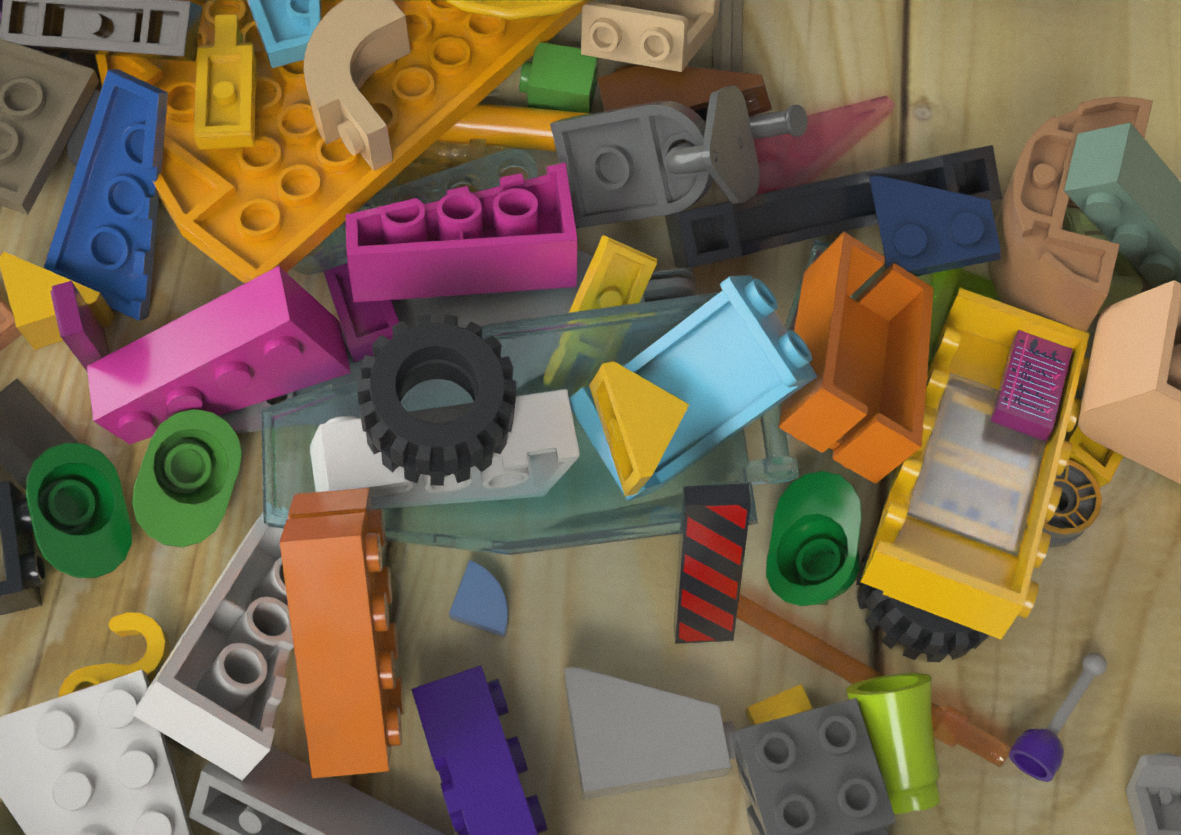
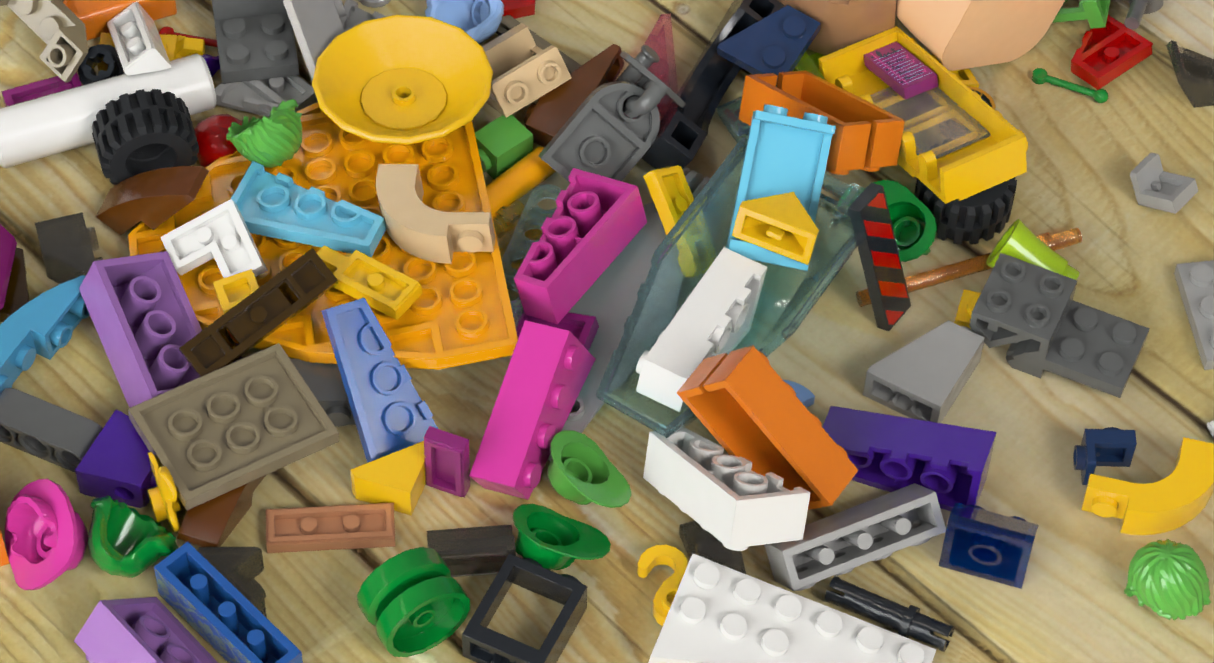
camera: 50 degrees left, 15 degrees down
(429, 354) = (682, 313): black tyre -> none
(1040, 750) = (1089, 217): dark purple hinge -> none

